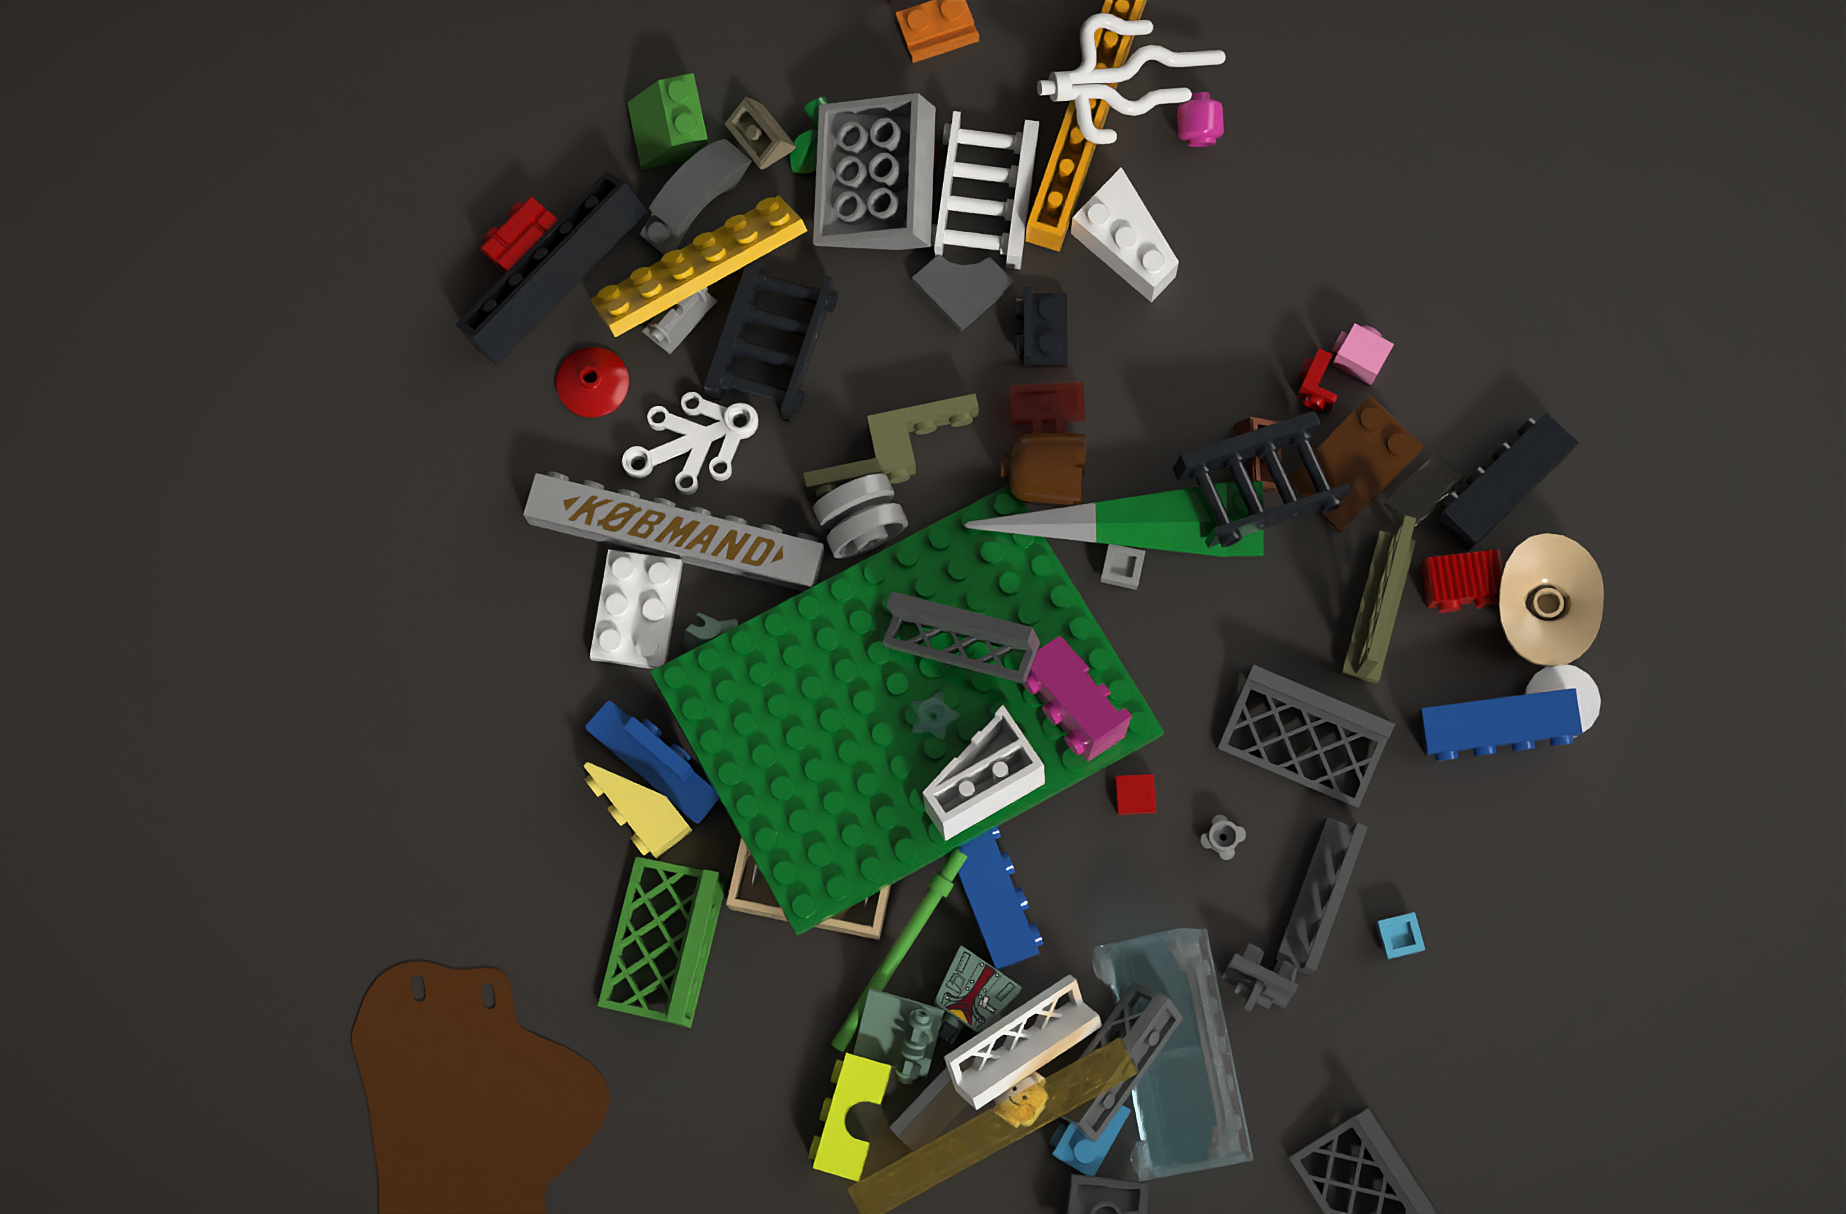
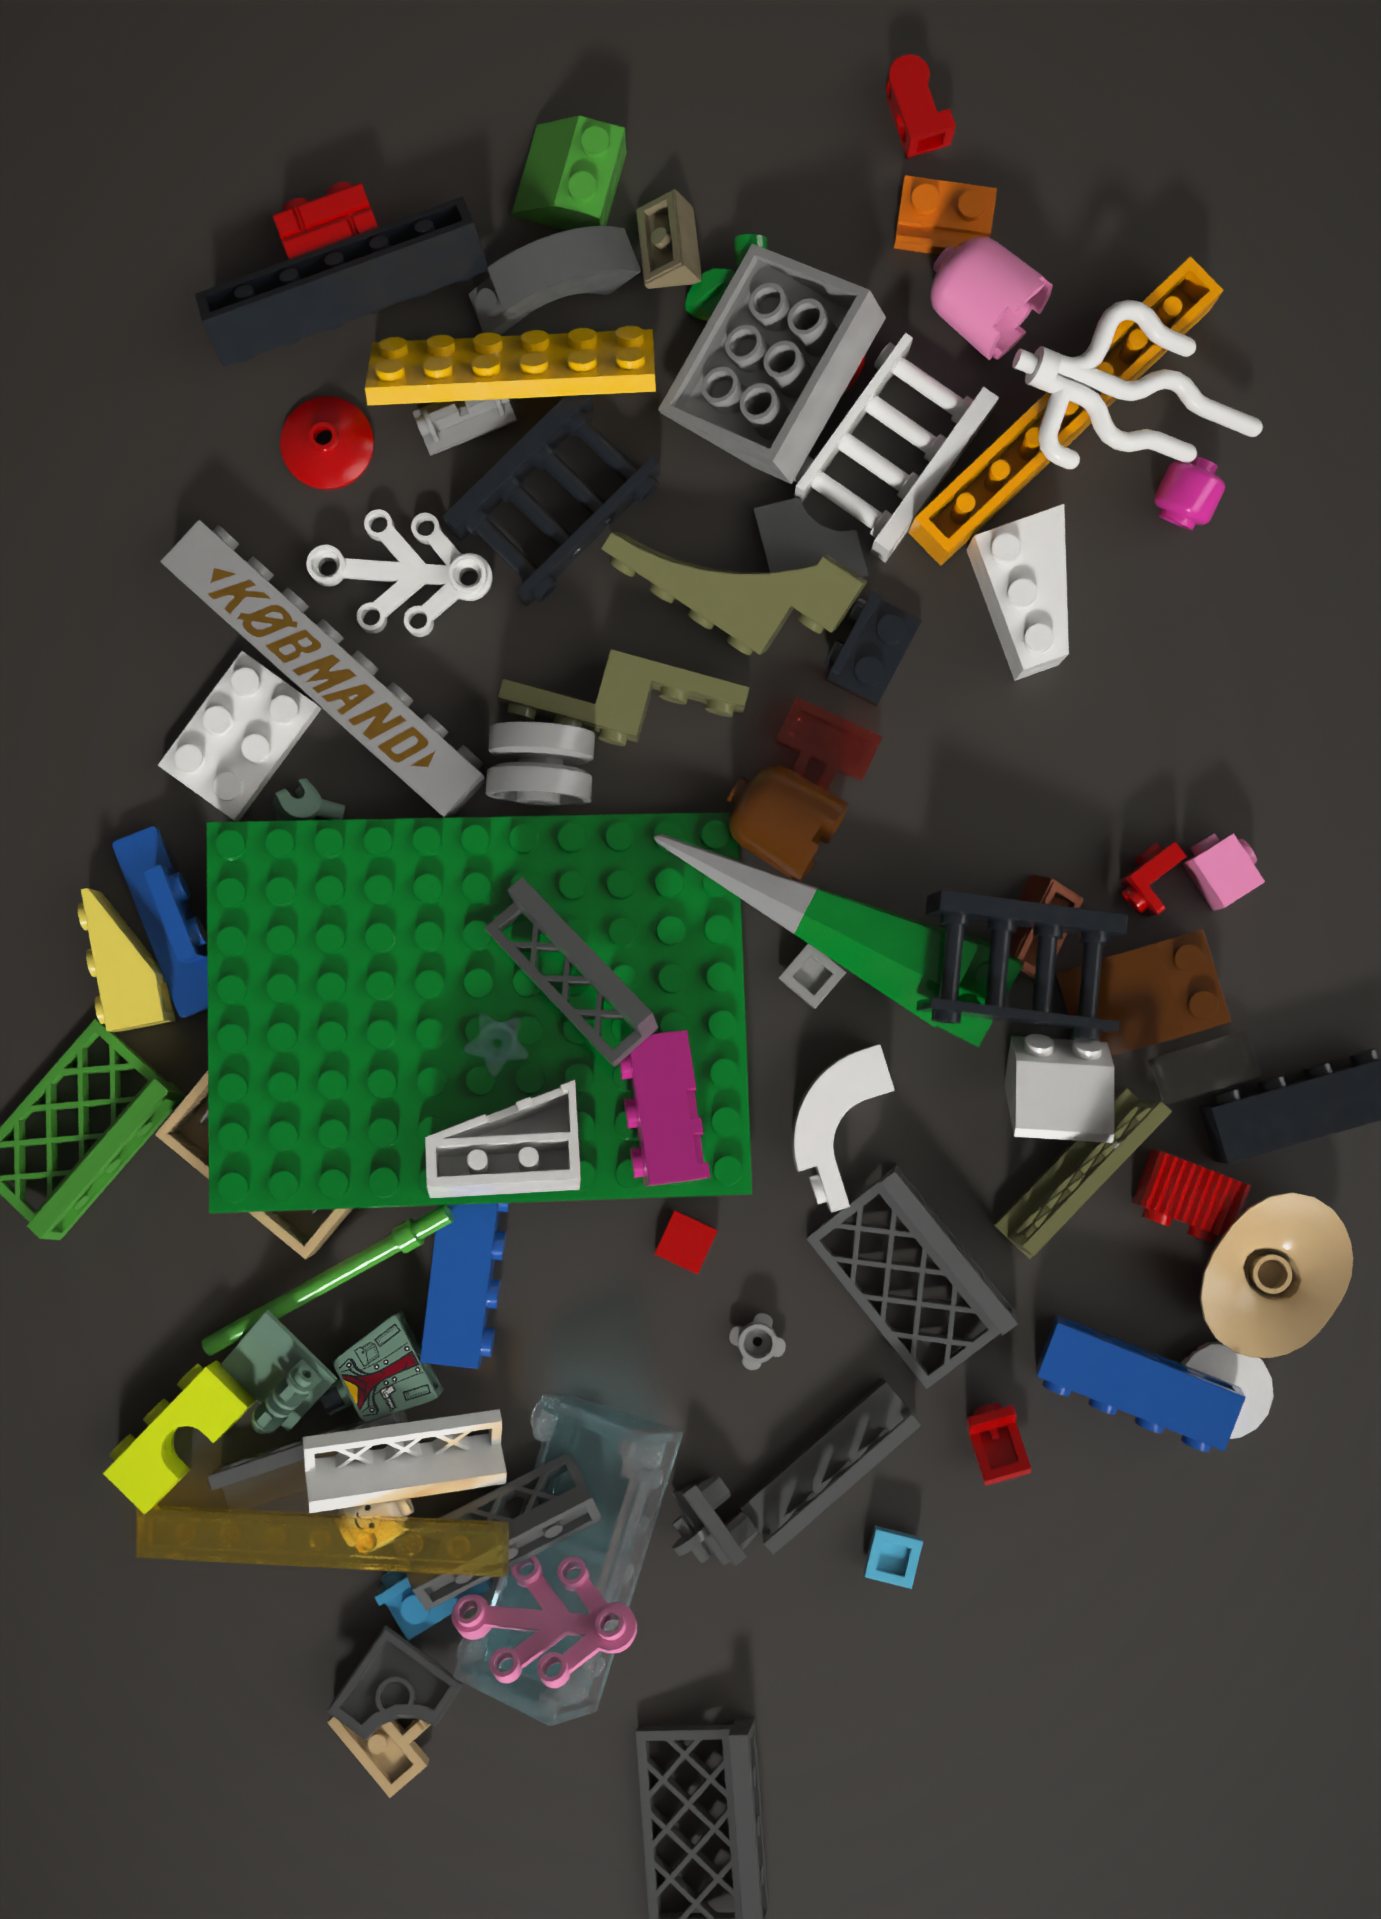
camera: 25 degrees right, 10 degrees up
(941, 341) = (743, 603): none -> olive arch
(993, 60) = (987, 294): none -> bright pink cylinder
(1186, 626) = (823, 1105): none -> white arch
(1186, 1101) = (549, 1624): none -> bright pink plant
(1333, 549) = (1060, 1088): none -> white slope
(1427, 817) = (997, 1443): none -> red bracket

